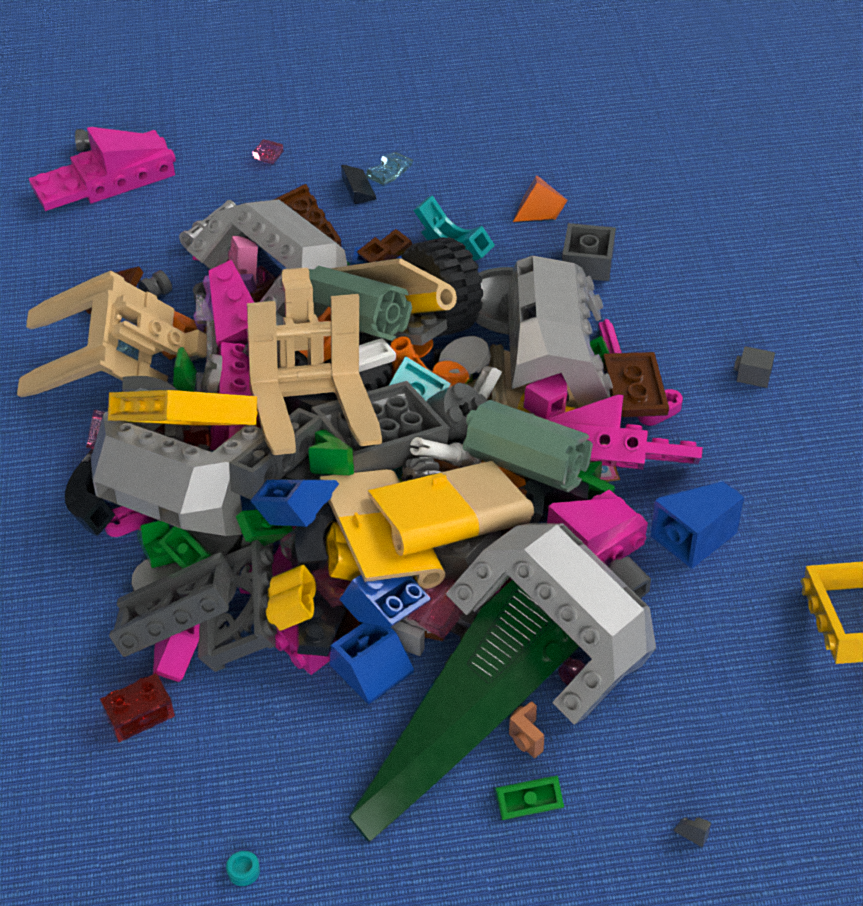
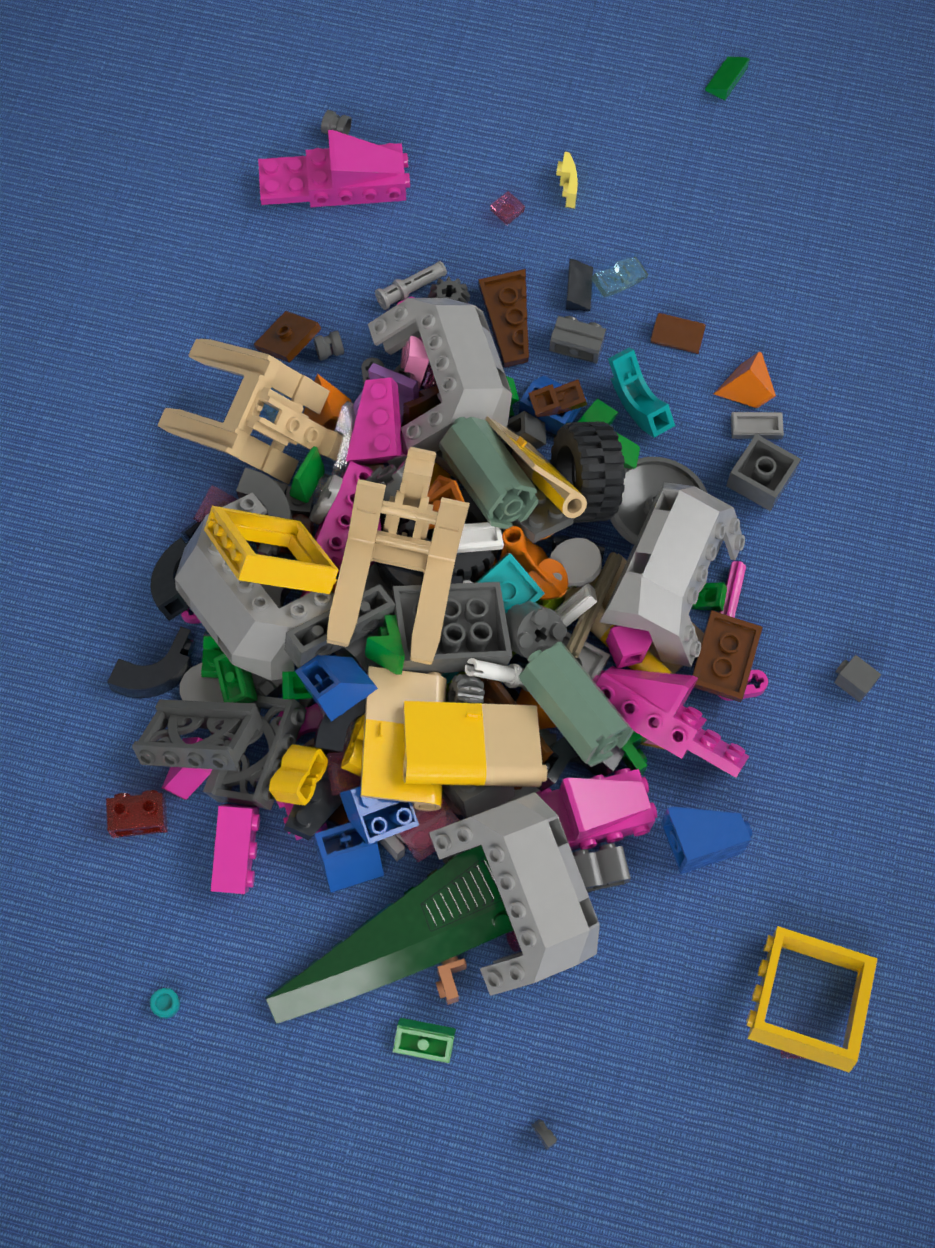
camera: 20 degrees right, 20 degrees up
(101, 589) = (158, 678): none -> black arch
(254, 694) = (235, 848): none -> dark pink wedge
(311, 118) = (568, 179): none -> light yellow slope
(377, 216) = (577, 339): none -> dark grey brick
(406, 24) = (727, 77): none -> green slope
(460, 188) = (678, 333): none -> reddish brown slope
(555, 230) = (766, 424): none -> light grey tile

